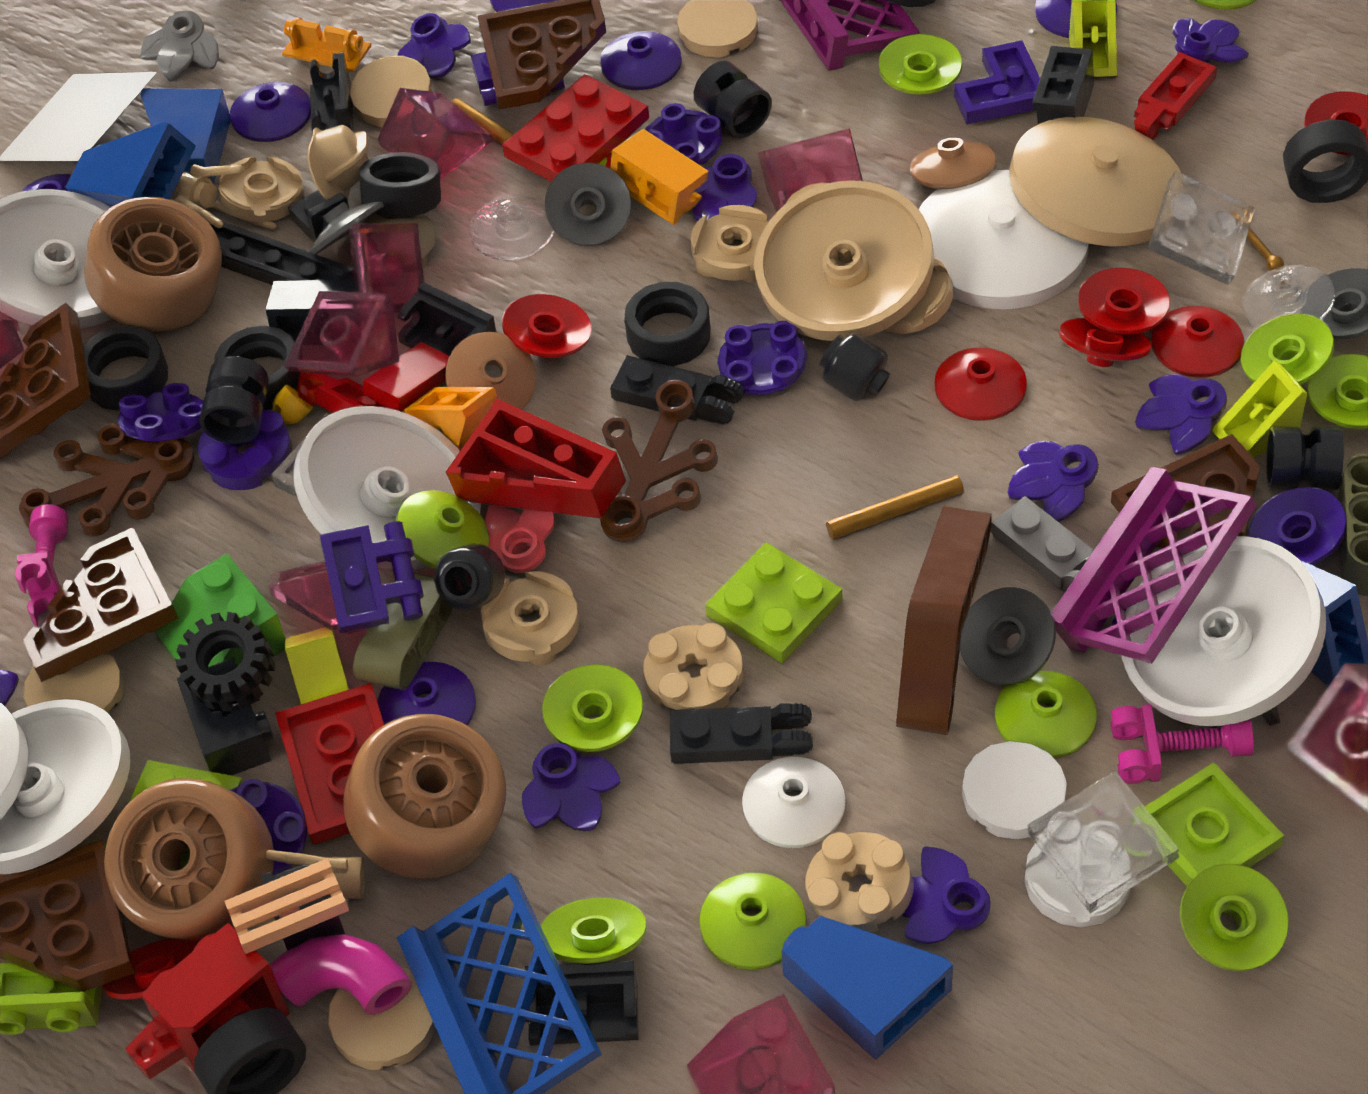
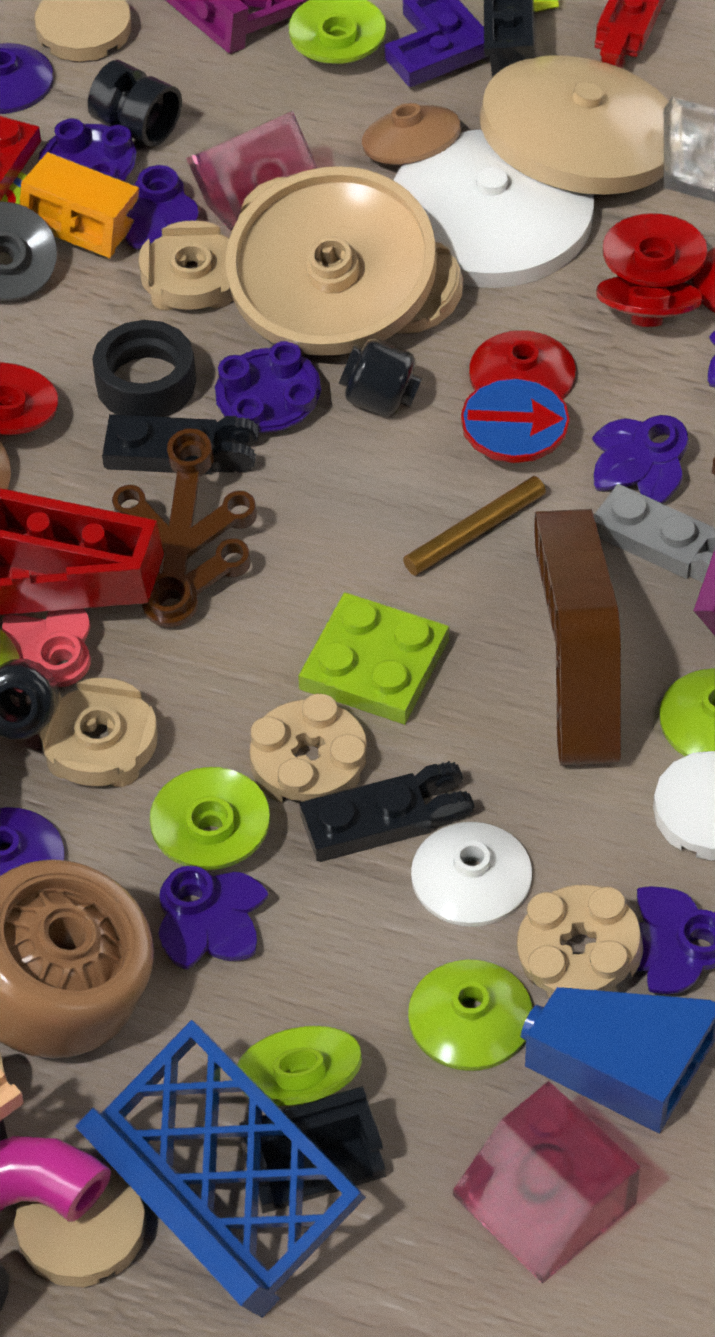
camera: 20 degrees left, 0 degrees up
(955, 424) = (515, 420): none -> blue piece
(990, 625) = (666, 611): dark grey dish -> none

